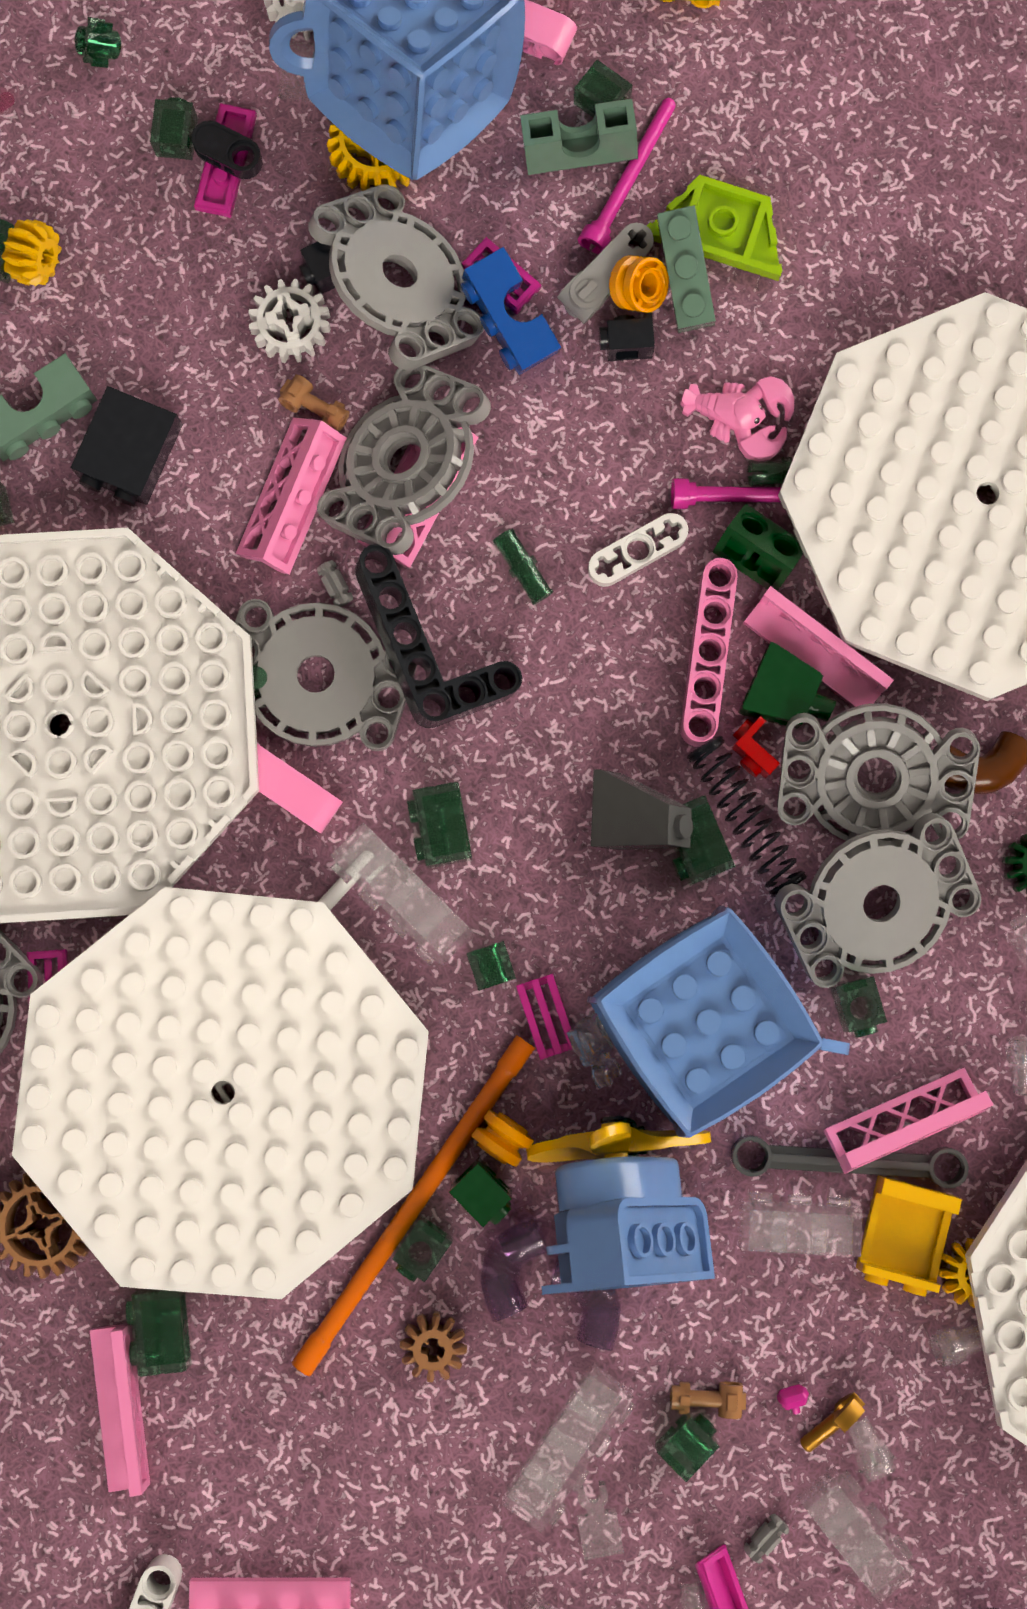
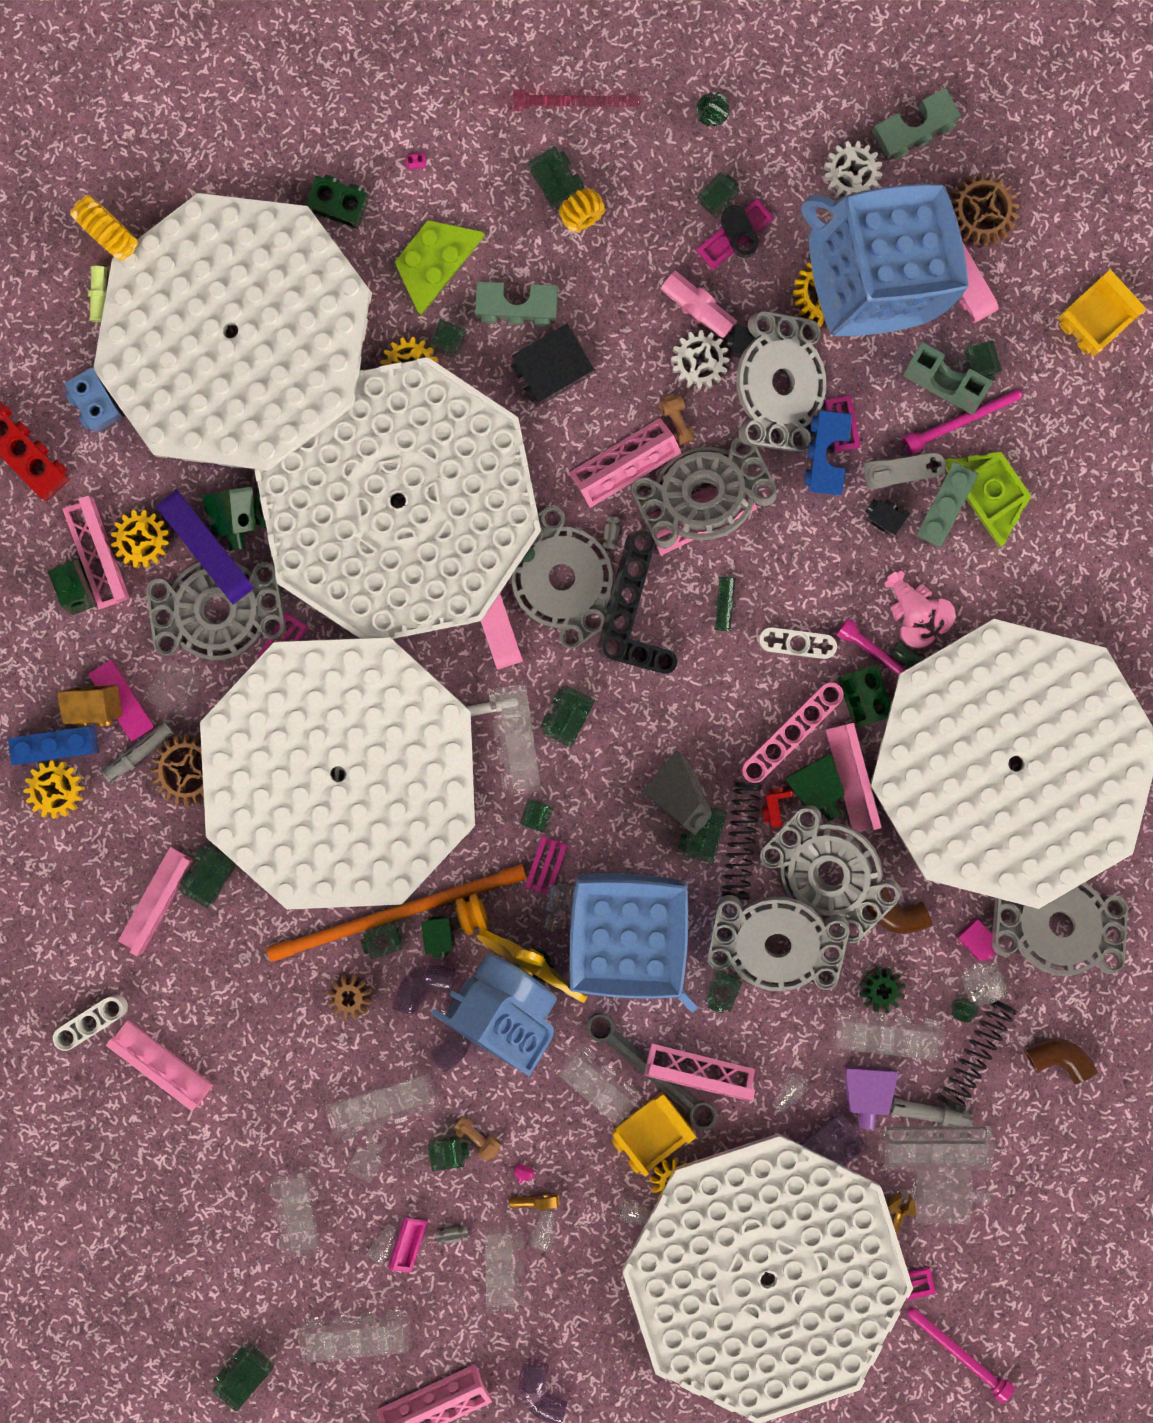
camera: 35 degrees right, 5 degrees up
(242, 262) = (698, 304): none -> bright pink piece
(639, 283) = (913, 492): light orange wheel -> none

